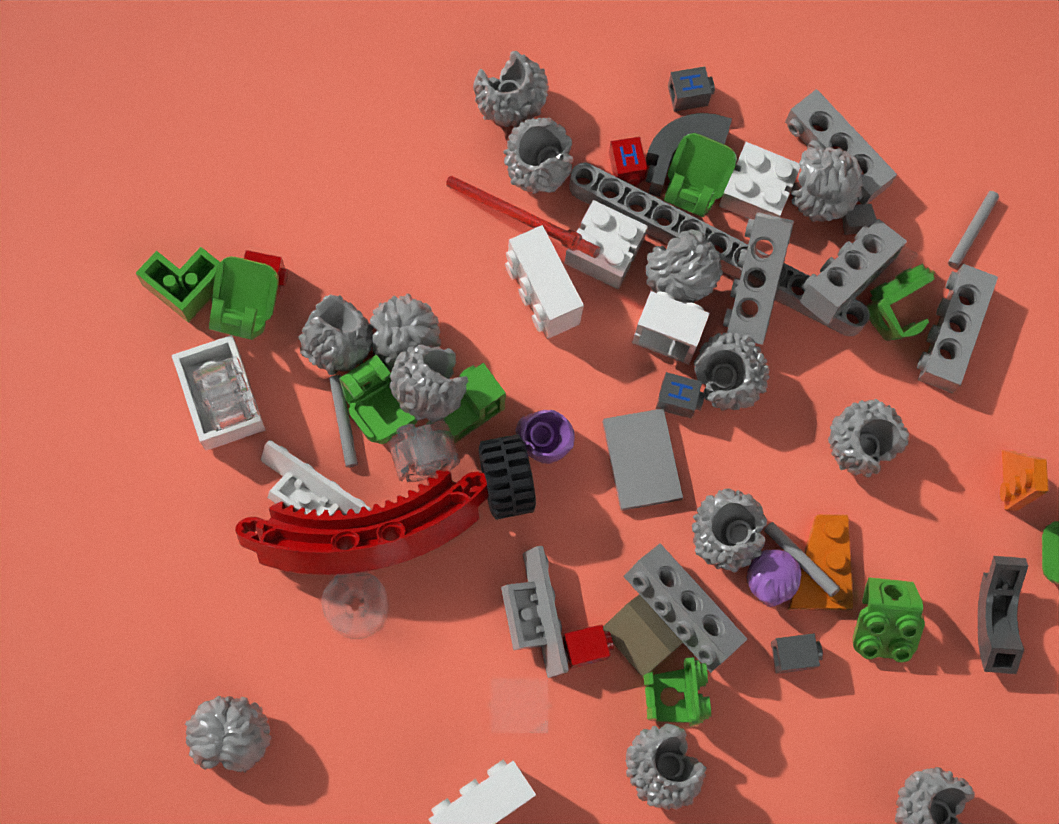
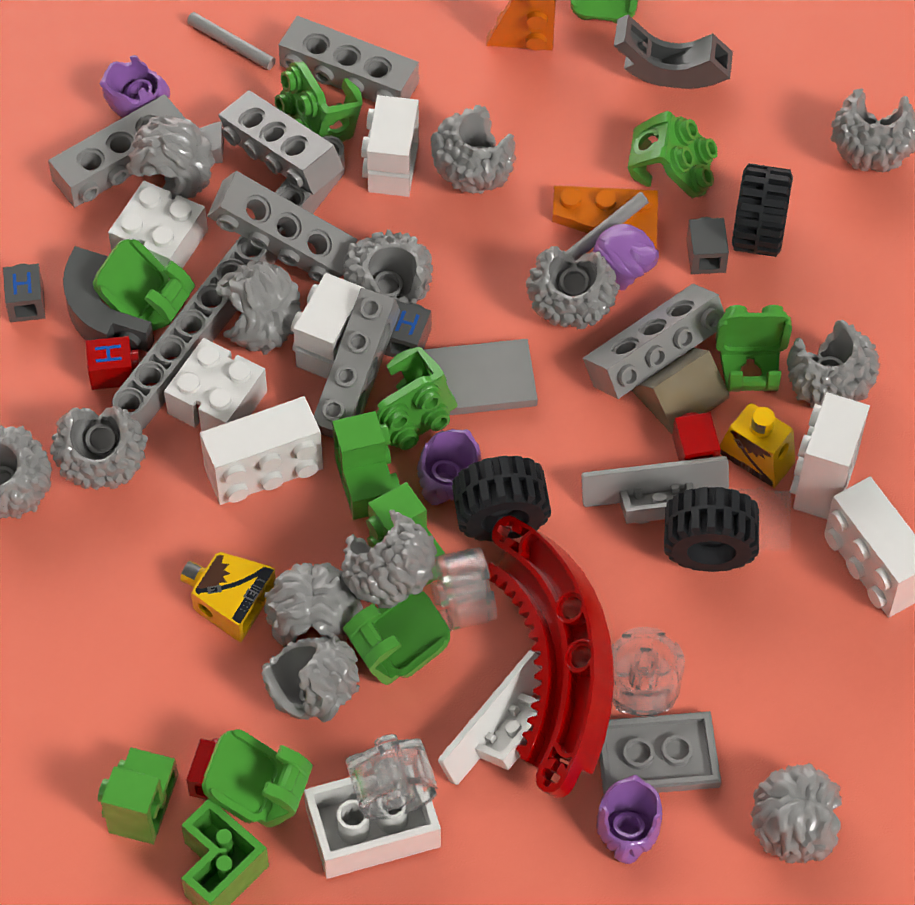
camera: 80 degrees left, 15 degrees down
(223, 596) = (629, 818): none -> medium lavender hair
(236, 221) = (138, 795): none -> bright green brick
(290, 621) = (663, 751): none -> light grey tile
(343, 422) = (412, 689): light grey bar -> none
(419, 270) = (229, 591): none -> yellow torso
(487, 656) = (711, 529): none -> black tyre
(538, 367) = (362, 460): none -> bright green brick
(563, 759) = (828, 453): none -> white brick
(568, 239) = (216, 410): clear red bar -> none
(584, 702) = (760, 444): none -> yellow torso
(599, 415) = (421, 399): none -> bright green piece
(630, 350) = (357, 359): none -> light grey brick
(828, 699) = (762, 210): none -> black tyre
(865, 367) = (391, 145): none -> white piece
(905, 150) = (131, 86): none -> medium lavender hair

